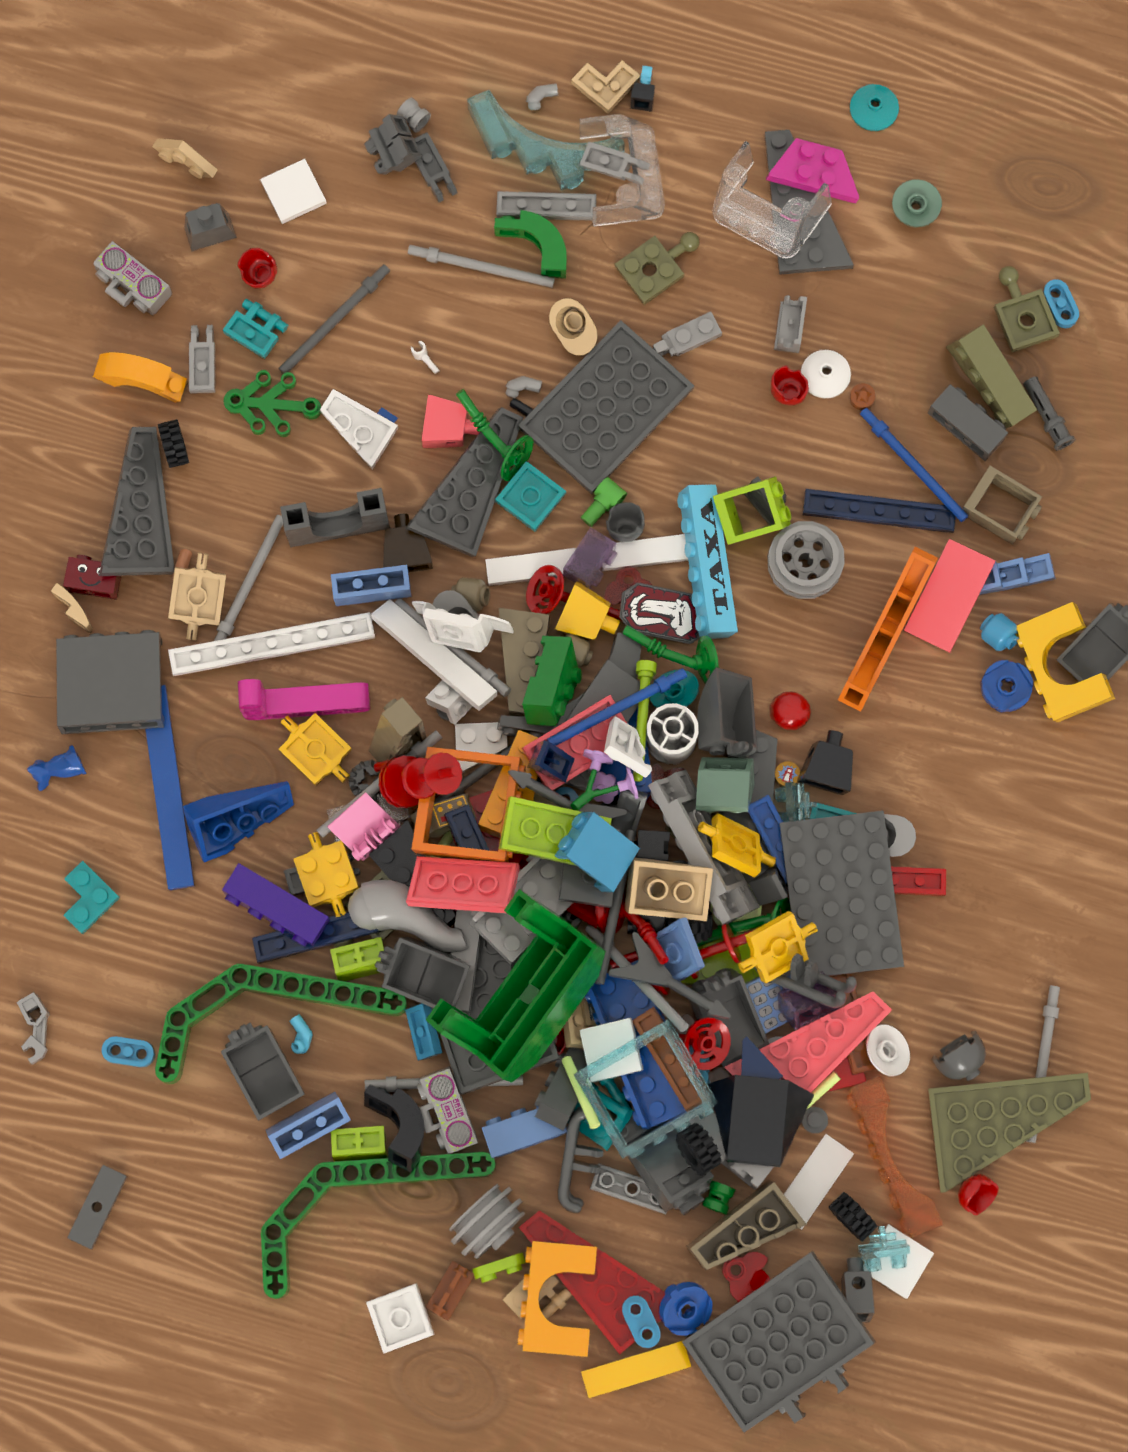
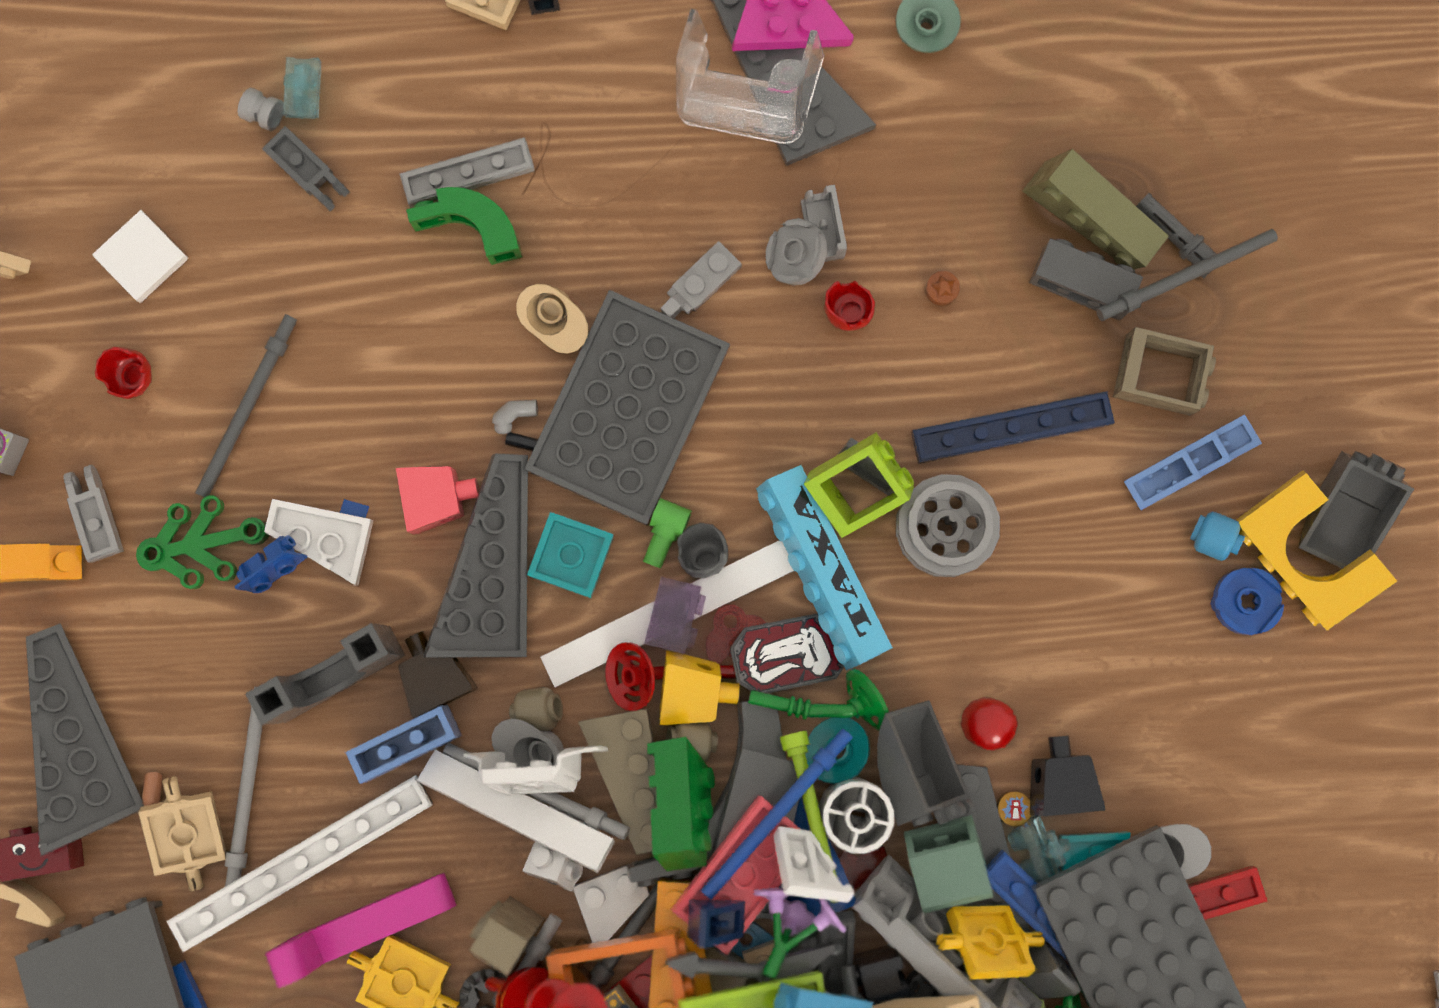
camera: 20 degrees left, 5 degrees up
(173, 443) = (86, 641): black tyre -> none
(208, 226) = (43, 337): dark grey torso -> none
(251, 334) = (144, 460): teal plate -> none
(306, 438) = (258, 575): none -> blue hinge
(393, 144) = (245, 156): dark grey hips -> none
(422, 355) = (375, 416): white hand -> none
(434, 255) = (347, 281): light grey bar -> none
(448, 109) = (302, 88): none -> clear light blue hips
(509, 453) = (526, 511): green dish -> none
(535, 152) = (430, 107): clear light blue arch -> none
(539, 93) = (410, 32): light grey arm -> none
(612, 163) = (531, 90): light grey hinge -> none
(633, 200) = (587, 120): clear windscreen -> none
(655, 254) = (624, 190): olive plate -> none
(764, 336) = (796, 252): none -> light grey tile
(826, 385) = (883, 288): white dish -> none
(881, 430) = (980, 323): blue bar -> none
(888, 629) = (1079, 588): orange arch -> none
(949, 595) = (1140, 510): coral tile -> none
(991, 445) = (1132, 299): none -> dark grey bar
(1030, 304) = (1113, 104): olive plate -> none
(1061, 305) = (1150, 89): dark azure plate -> none

